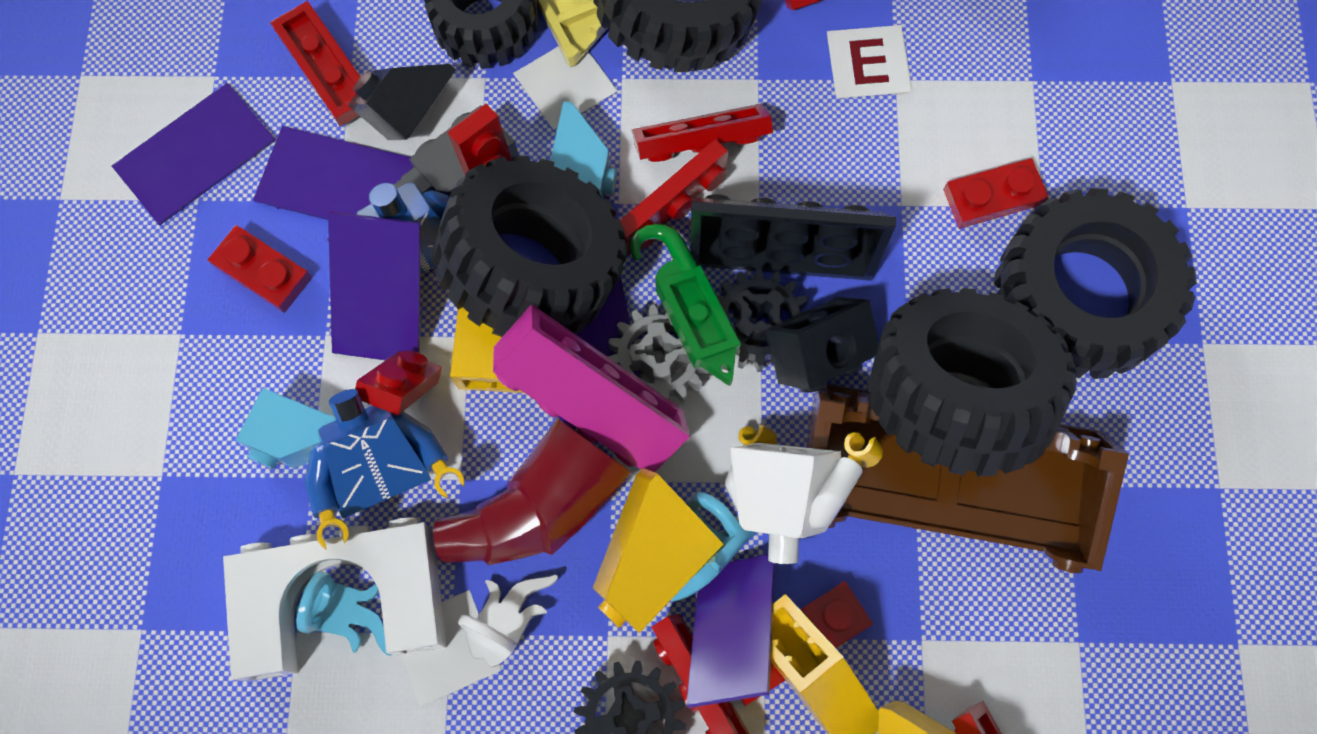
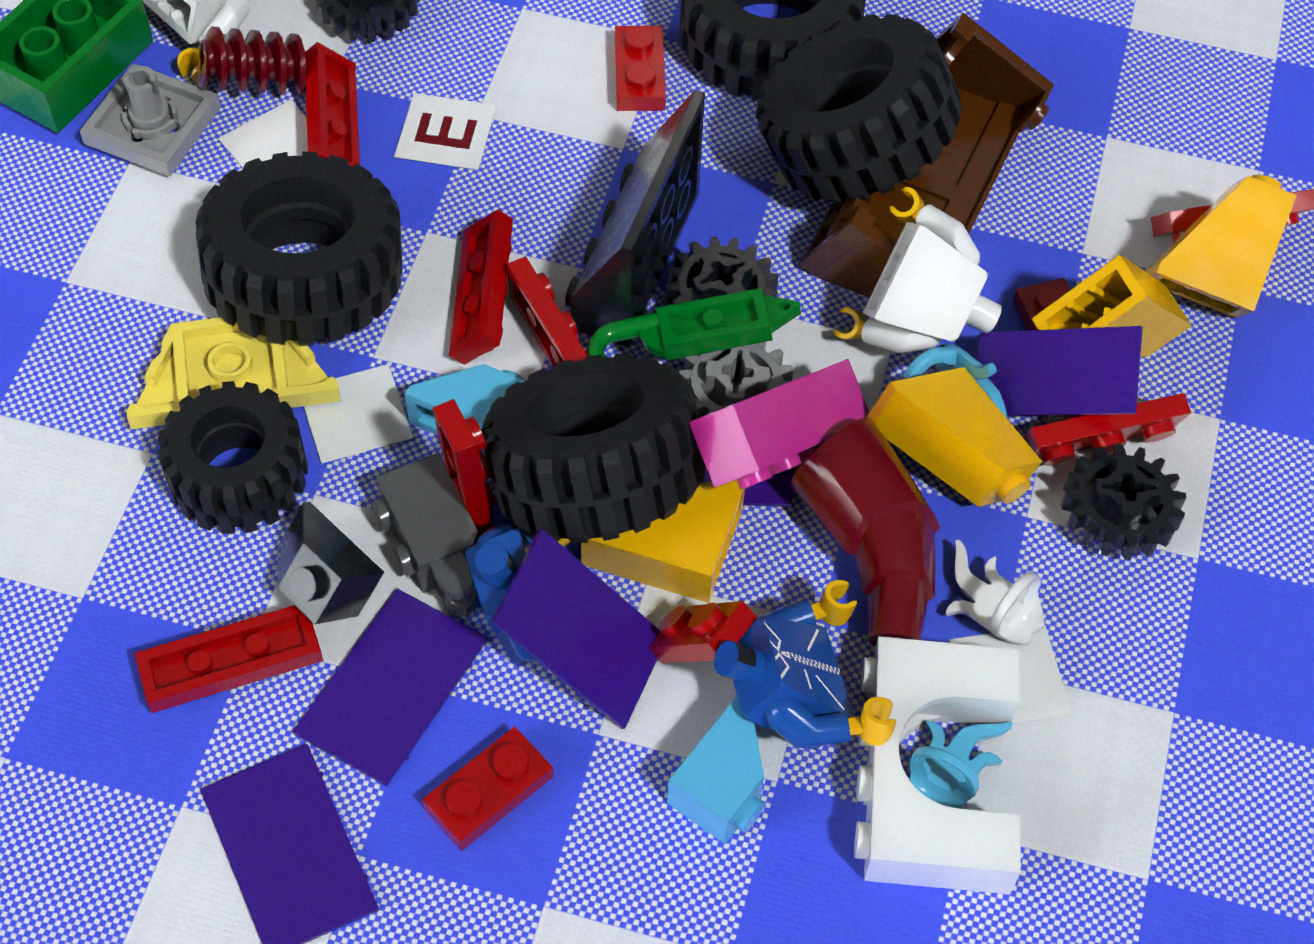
camera: 80 degrees left, 15 degrees down
(823, 343) = (773, 228): black brick -> none

